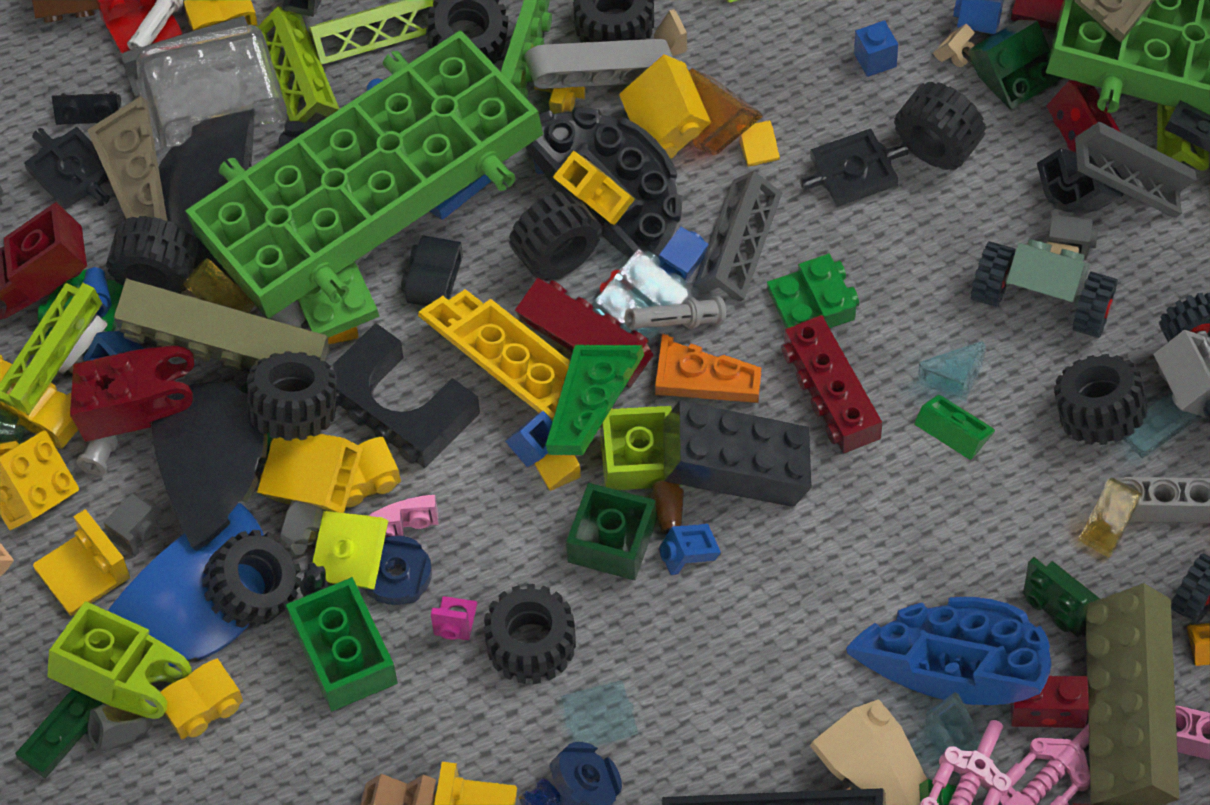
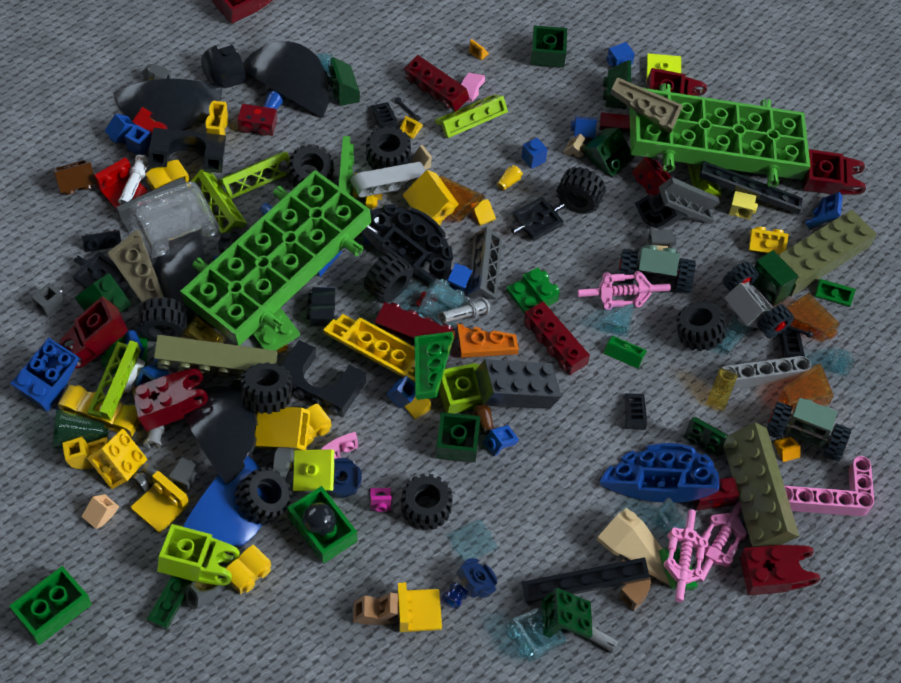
camera: 20 degrees left, 0 degrees up
(62, 520) = (144, 479): none -> dark grey wheel
(72, 194) = (108, 289): none -> dark green slope
(313, 580) = (299, 492): black axle -> none
(333, 631) = (319, 519): none -> black hair
(594, 187) = (405, 248): yellow brick -> none
(821, 87) = (510, 177): none -> yellow cone
(942, 556) = (636, 424): none -> black slope
(1012, 317) = (606, 290): none -> bright pink bar

